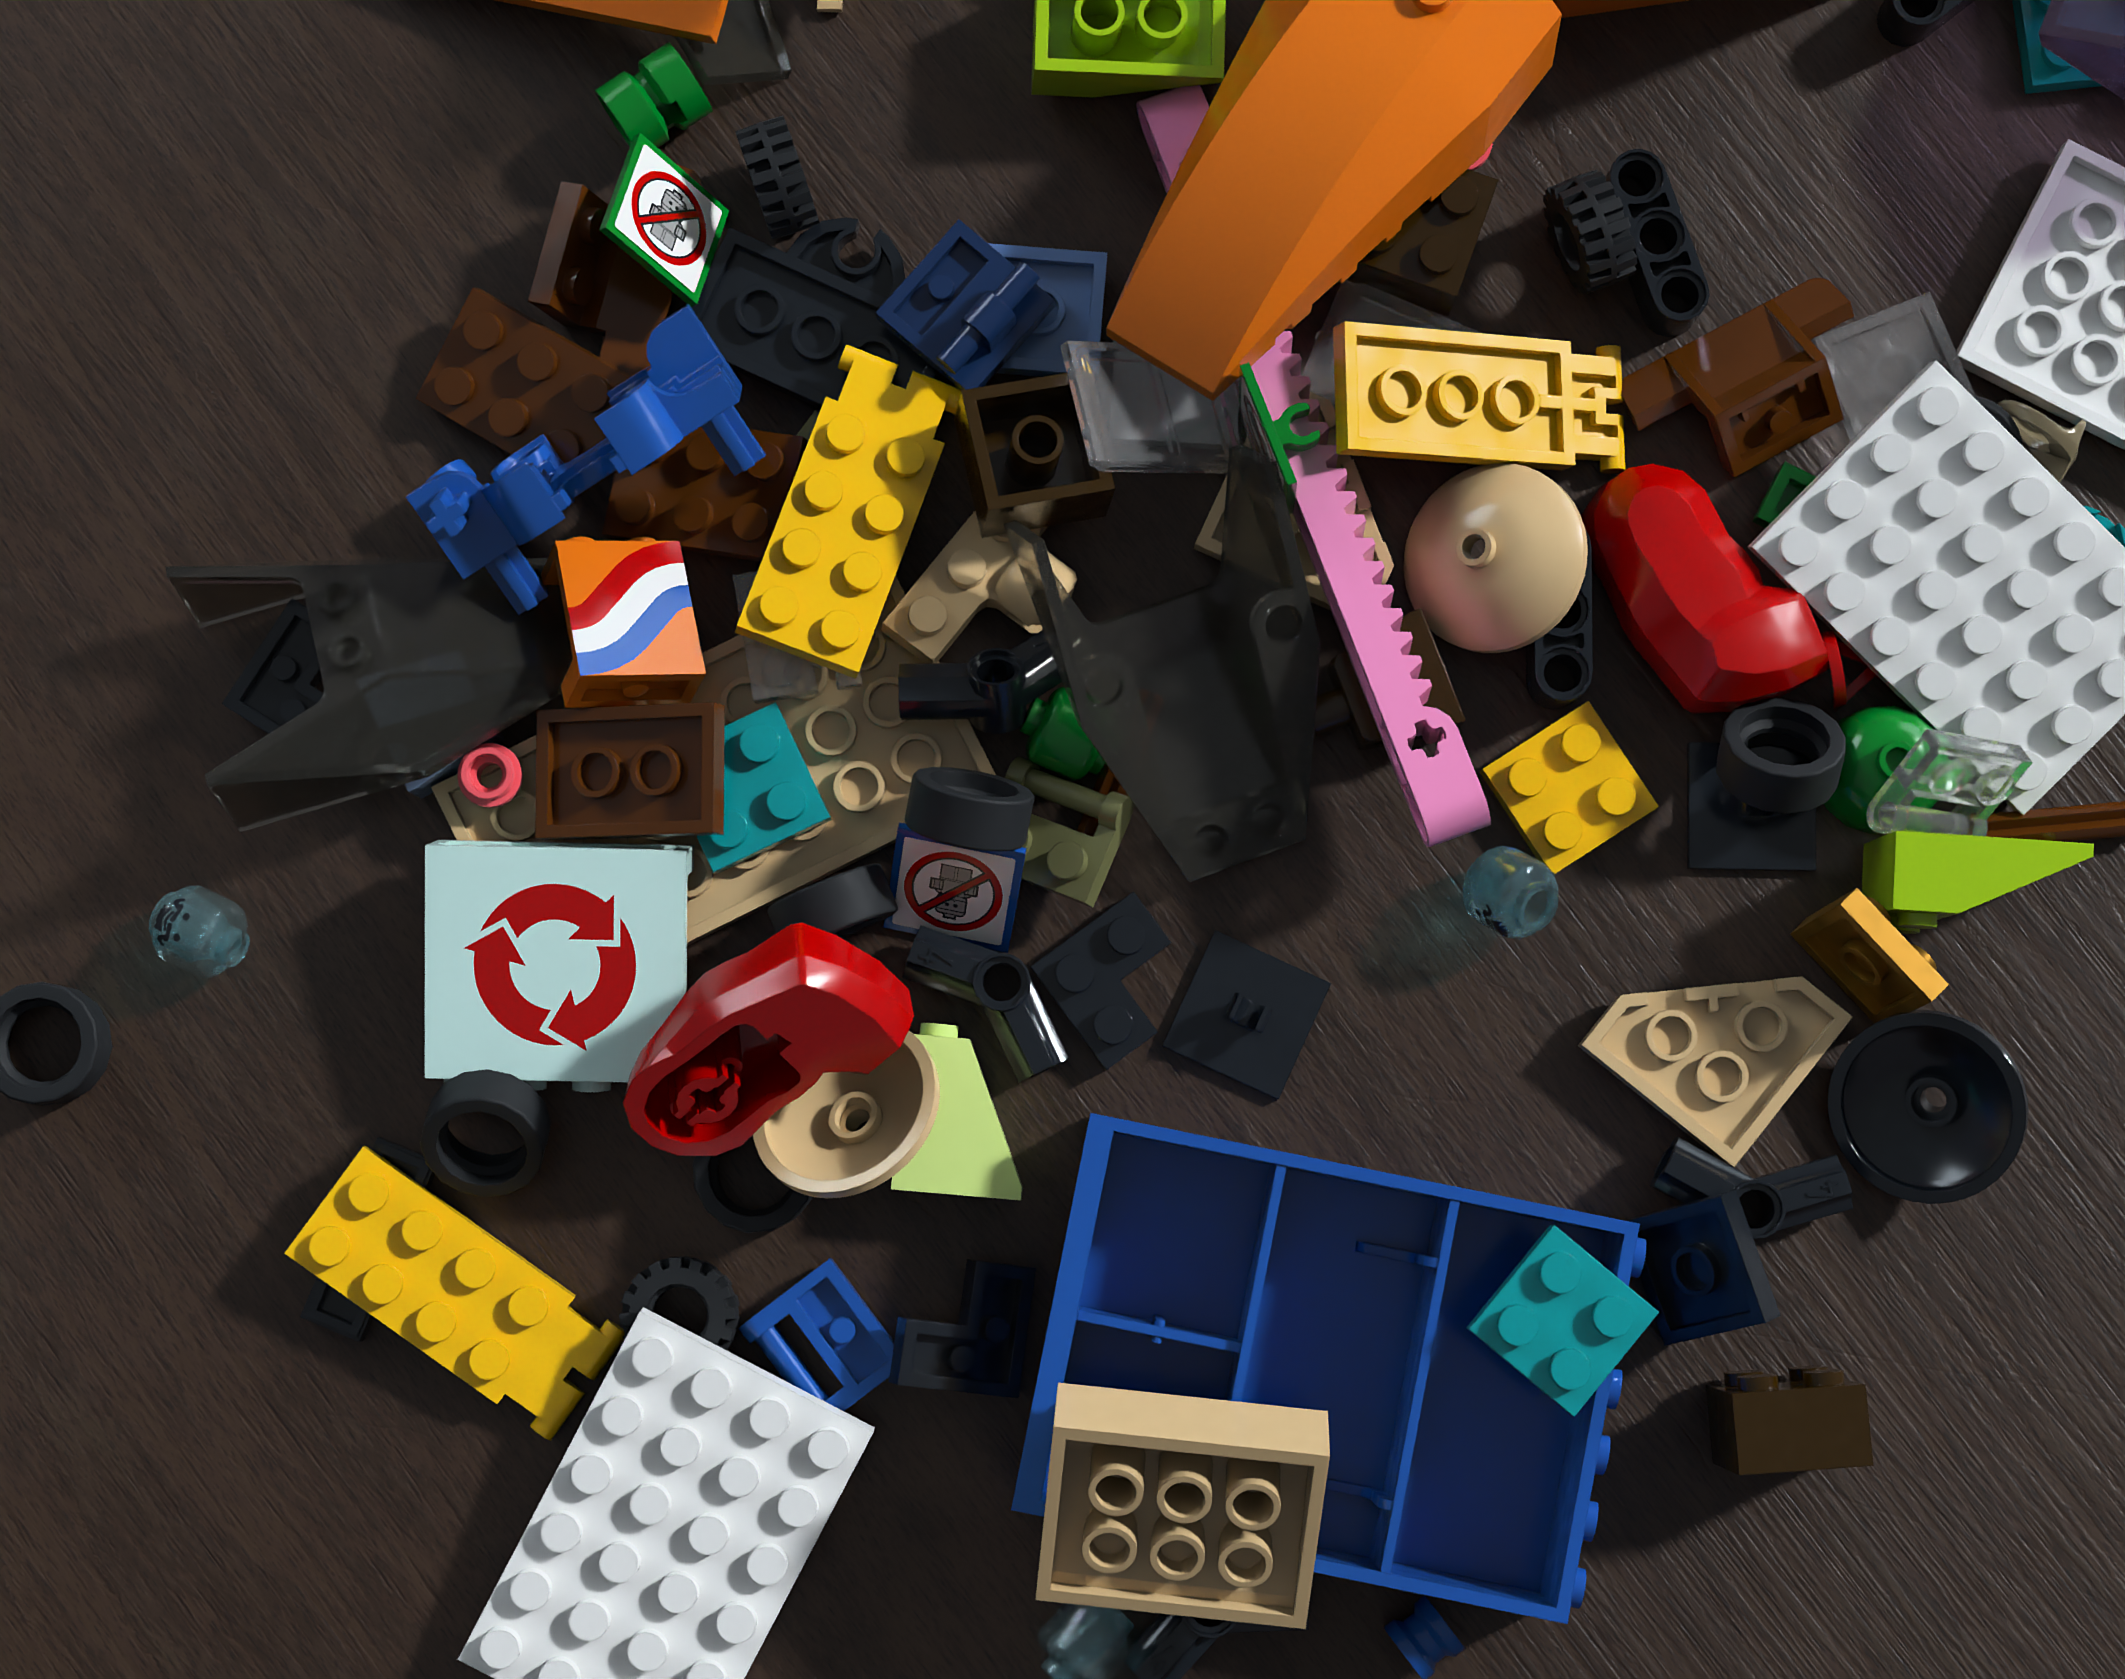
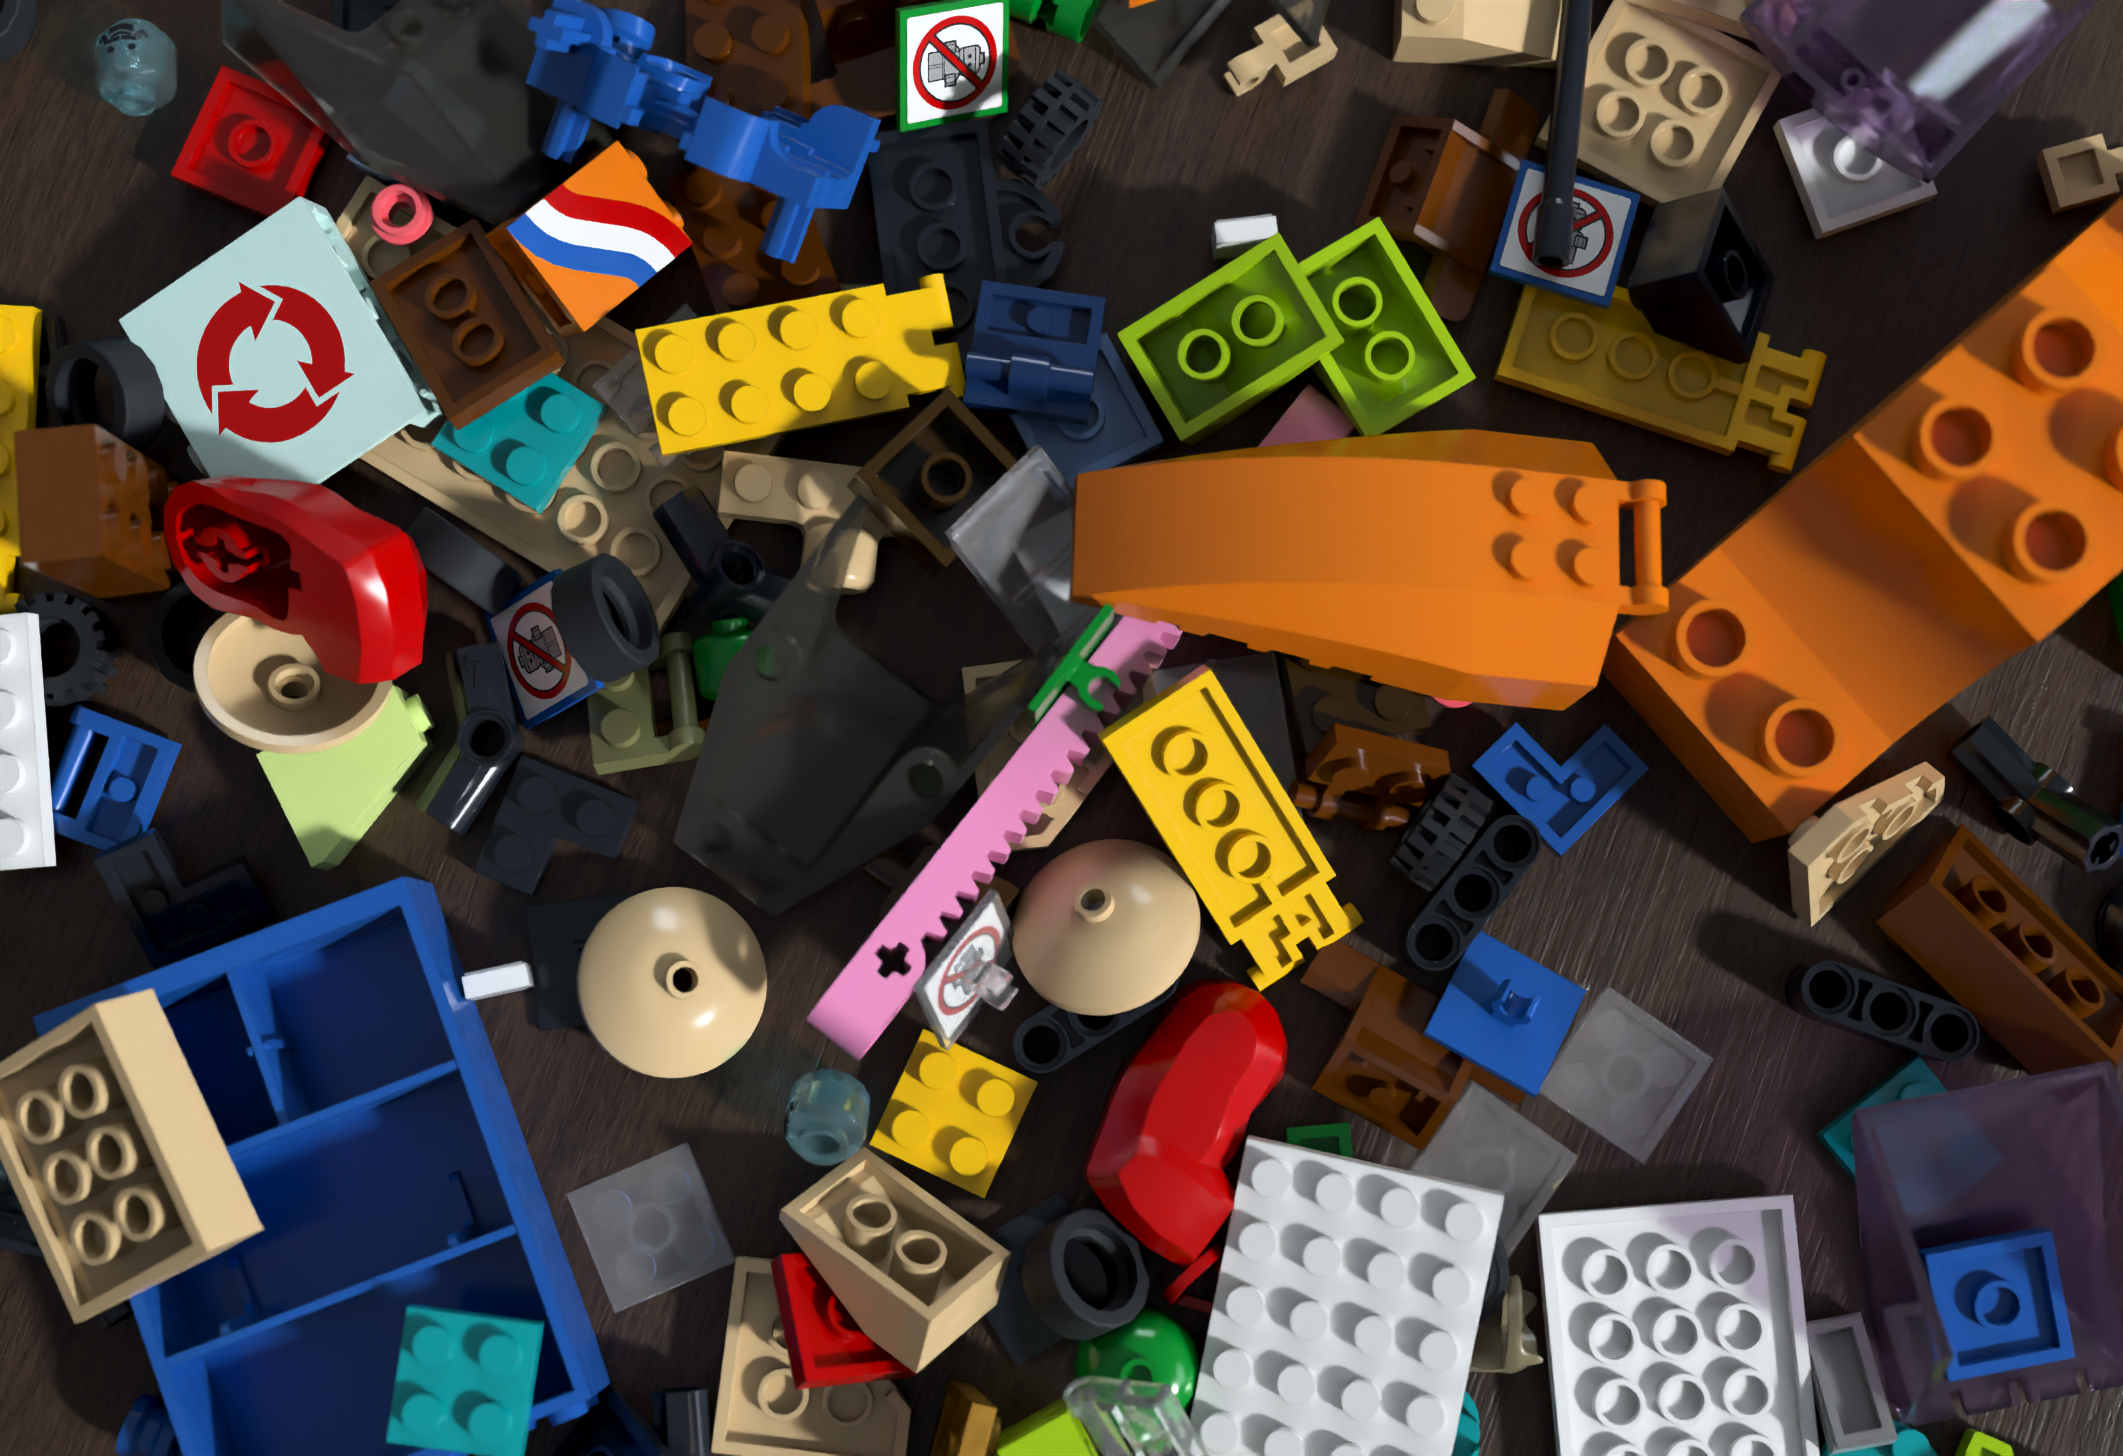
camera: 55 degrees right, 0 degrees up
(338, 873) = (250, 146): none -> red plate
(602, 1183) = (93, 513): none -> reddish brown brick
(973, 77) = (1238, 235): none -> white tile
(1064, 134) = (1231, 340): none -> lime slope
(1217, 1102) = (498, 980): none -> white tile
(1291, 981) = (630, 990): none -> tan dish
(1469, 688) = (969, 972): none -> clear piece
(1508, 249) = (1372, 764): none -> reddish brown plate
(1509, 1103) = (651, 1227): none -> clear plate
(1619, 115) = (1558, 798): none -> blue plate
(1669, 903) = (896, 1257): none -> tan slope
(1692, 978) = (821, 1334): none -> red plate
(1773, 278) = (1505, 1013): none -> blue piece
(1882, 213) = (1624, 1074): none -> clear plate

